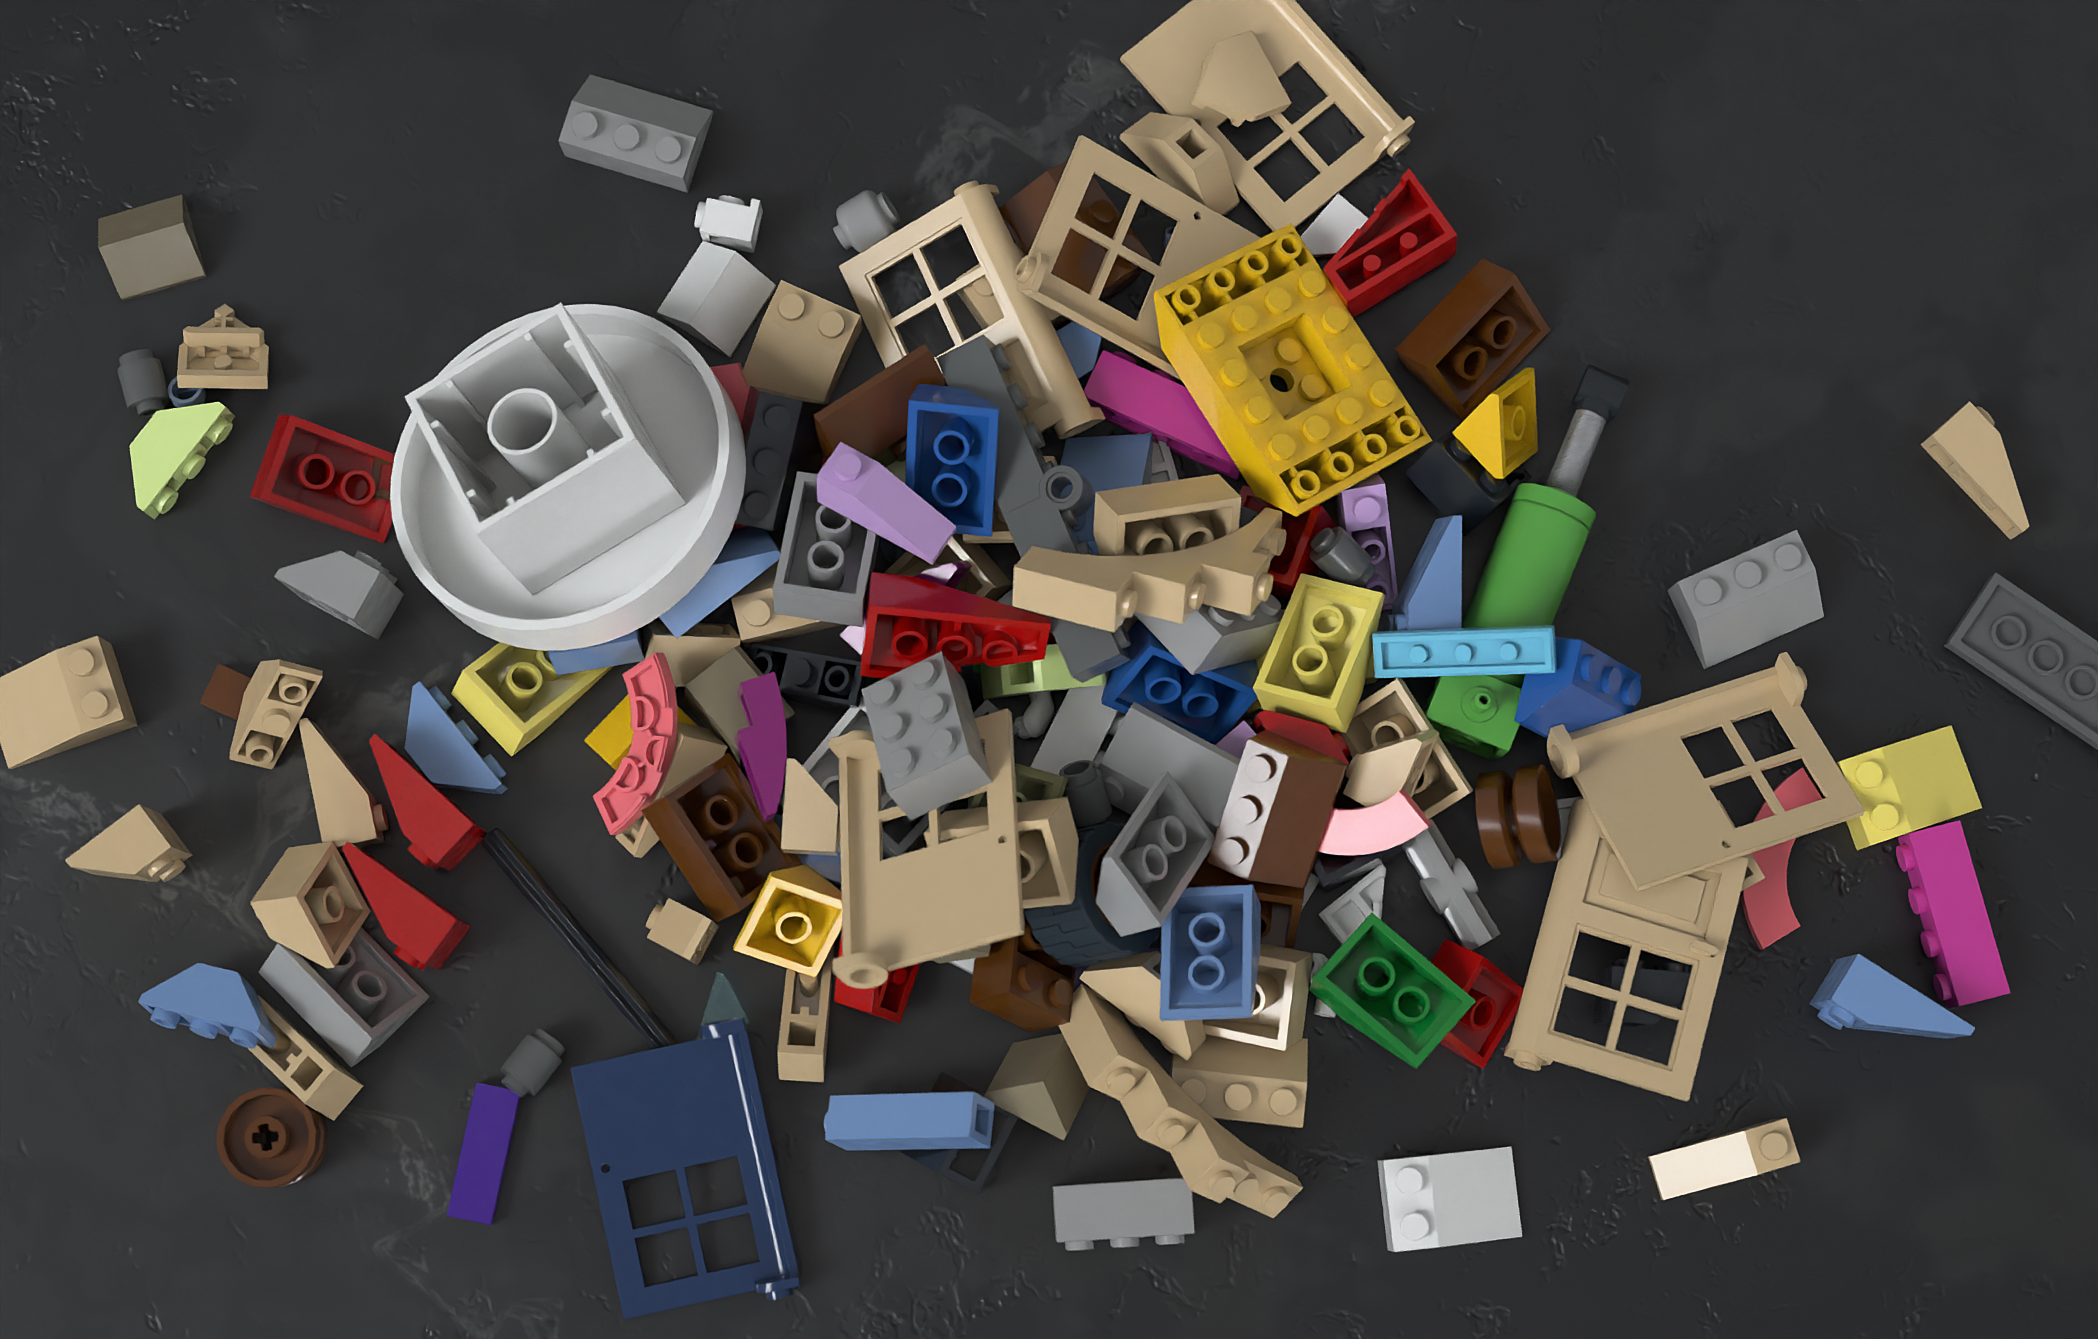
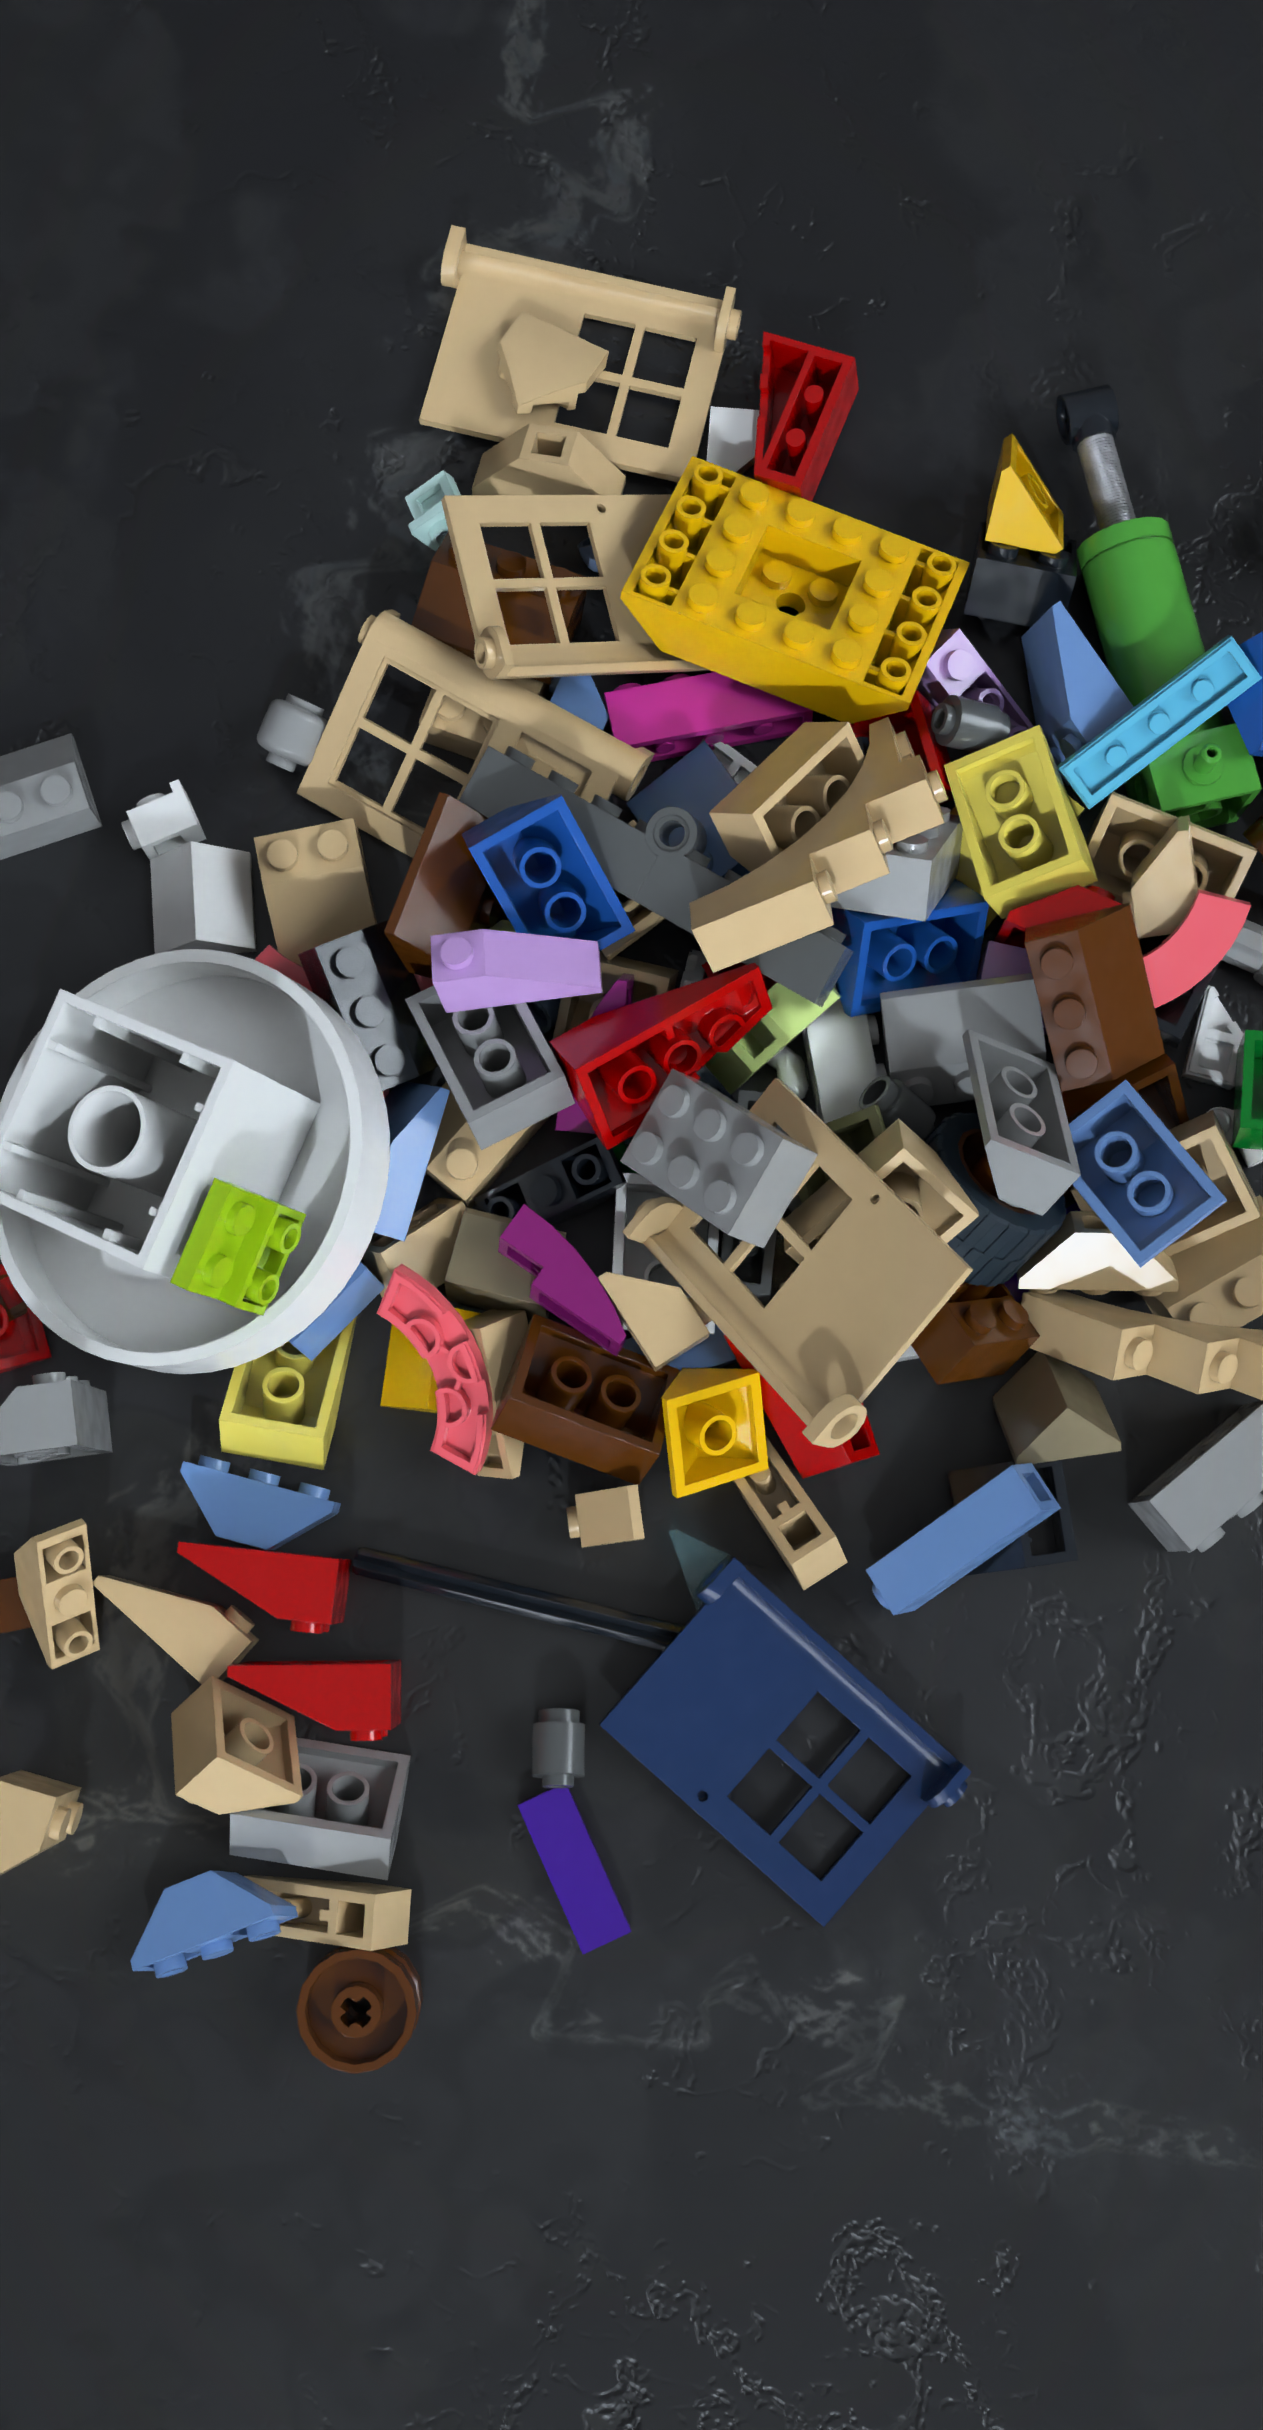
camera: 30 degrees left, 0 degrees up
(553, 564) = (238, 1247): none -> lime brick
(1087, 121) = (427, 509): none -> light aqua bracket
(1473, 338) = (932, 449): reddish brown slope -> none

